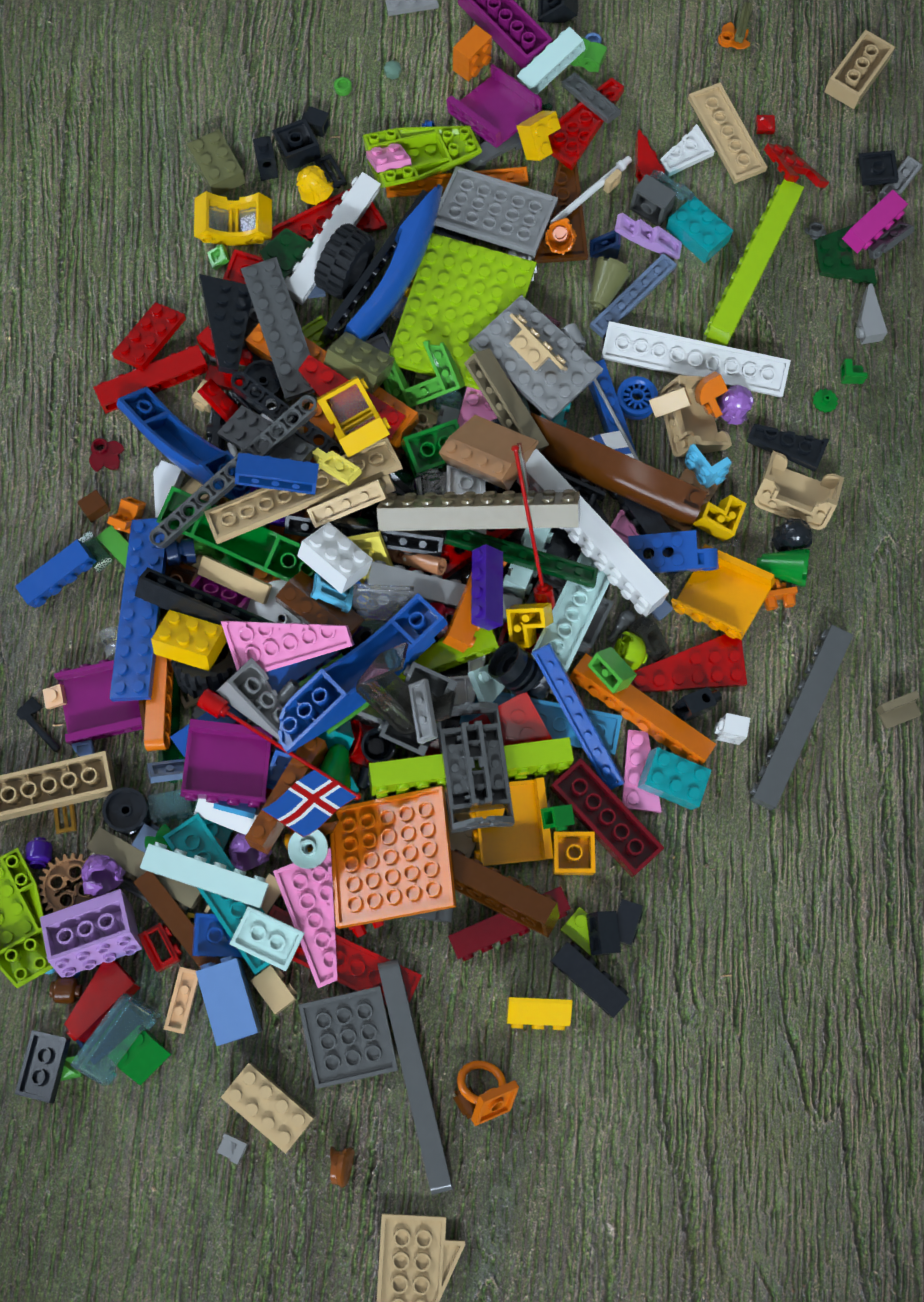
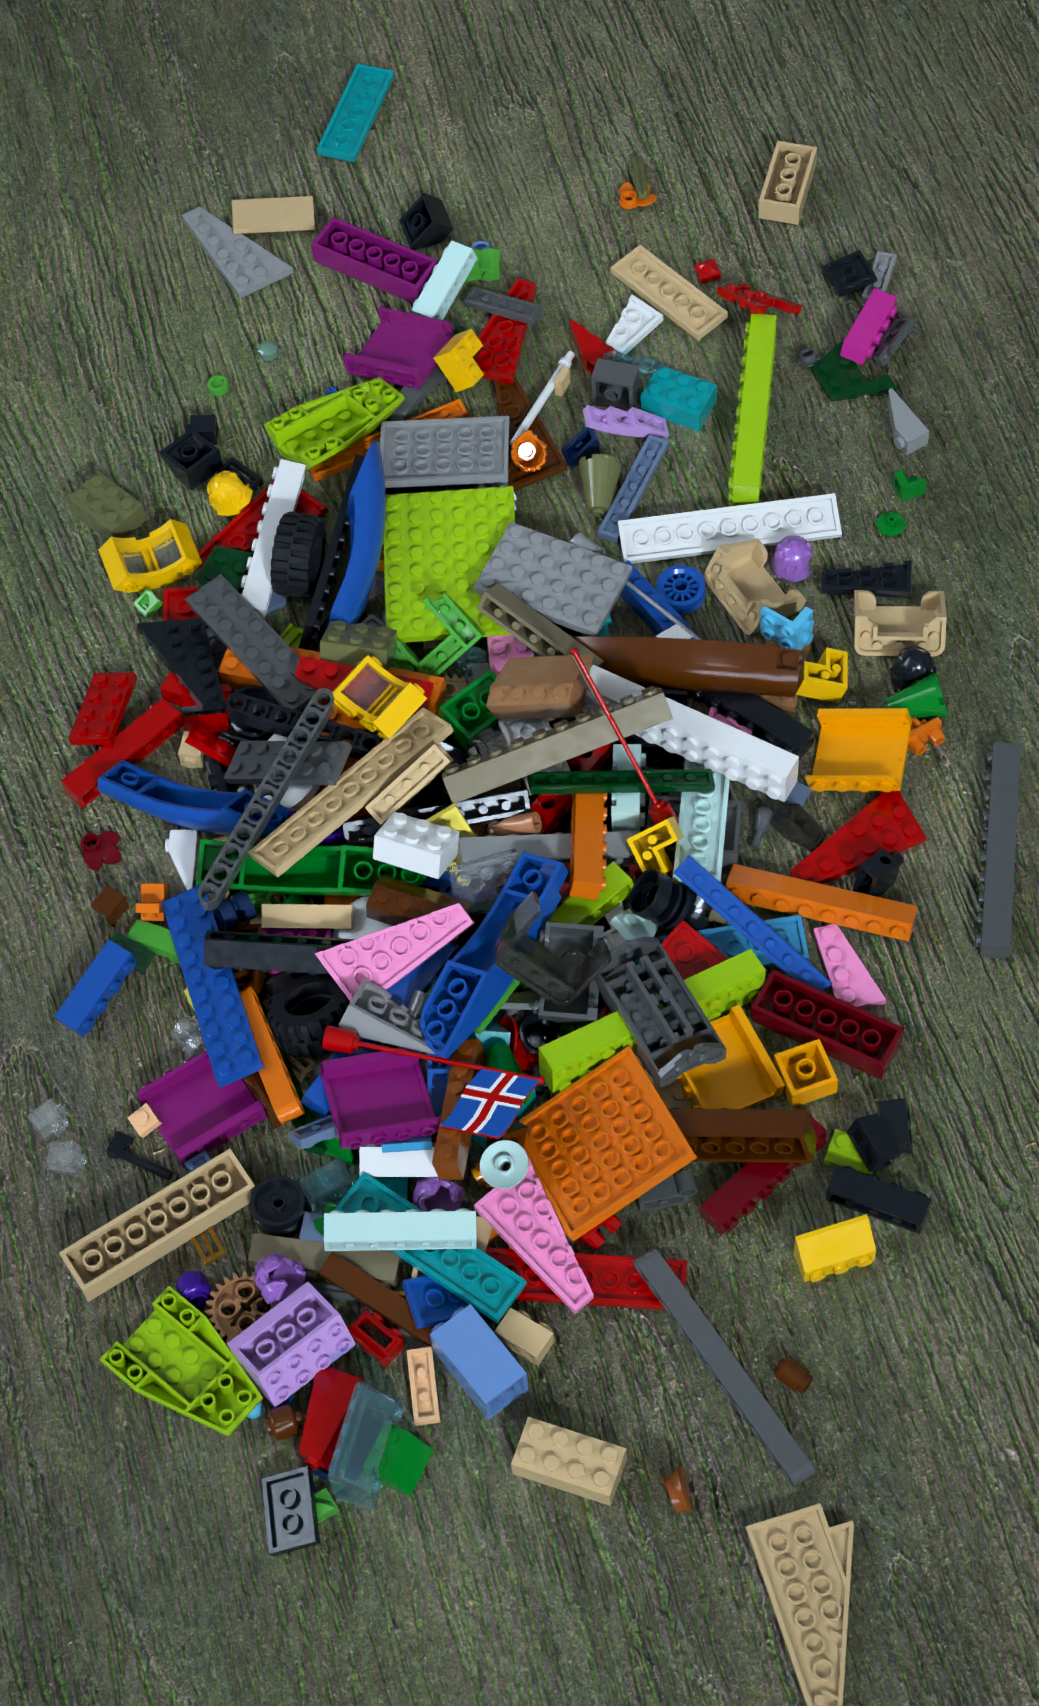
camera: 10 degrees left, 15 degrees down
(188, 640) = (284, 990): yellow brick -> none
(232, 1147) = (545, 1519): light grey panel -> none
(265, 153) = (156, 477): black torso -> none
(267, 938) = (496, 1275): light aqua tile -> none
(276, 473) = (318, 778): blue brick -> none
(323, 591) = (425, 884): medium azure plate -> none
(337, 466) = (380, 751): light yellow hinge -> none
(348, 1037) = (630, 1353): dark grey plate -> none
(388, 157) = (302, 437): bright pink plate -> none
(423, 711) = (577, 969): light grey tile -> none
(472, 53) = (352, 303): orange brick -> none
(487, 587) = (597, 819): dark purple brick -> none
(492, 1102) = (823, 1355): orange tile -> none
(532, 348) = (545, 568): tan bracket -> none
(557, 817) = (771, 1037): green brick -> none
(612, 670) = (769, 865): bright green brick -> none
(631, 650) = (781, 848): lime cylinder -> none
(670, 402) = (719, 577): tan tile -> none
(674, 778) = (885, 957): teal brick -> none
(685, 556) = (801, 723): blue hinge -> none
(708, 390) = (756, 554): orange brick -> none
(732, 728) = (928, 884): white brick -> none

